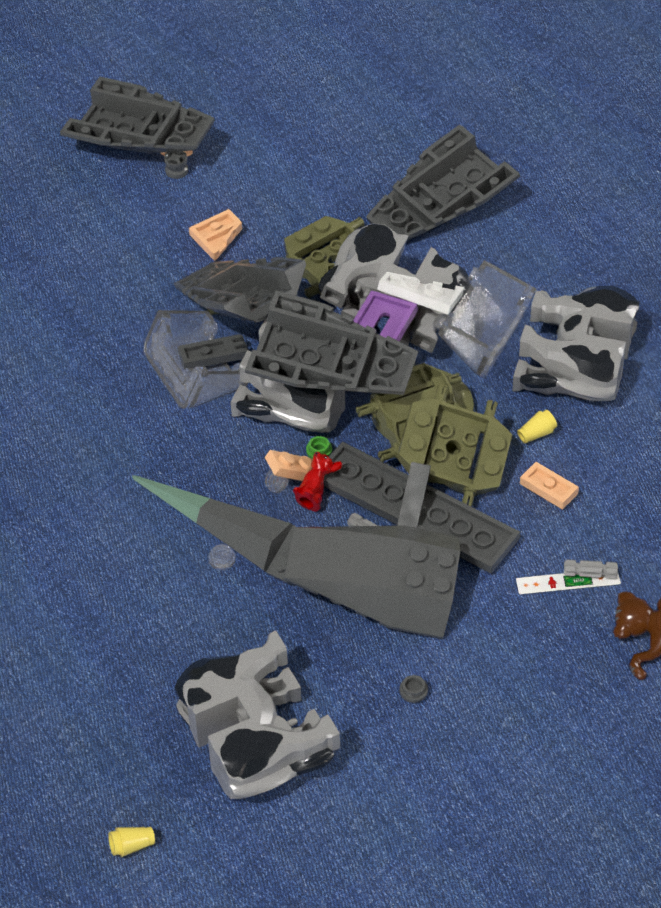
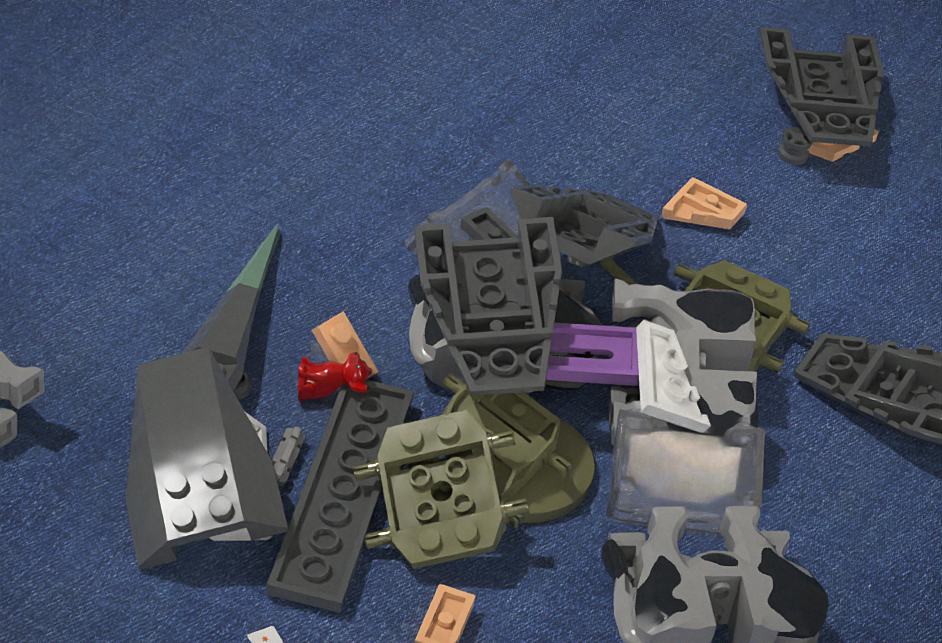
camera: 60 degrees right, 5 degrees down
(221, 557) = (181, 327): clear plate -> none
(318, 444) = (398, 374): bright green plate -> none
(413, 689) = (38, 552): dark grey plate -> none
(414, 494) = (330, 472): dark grey sticker -> none
(538, 426) = (546, 588): light yellow cone -> none

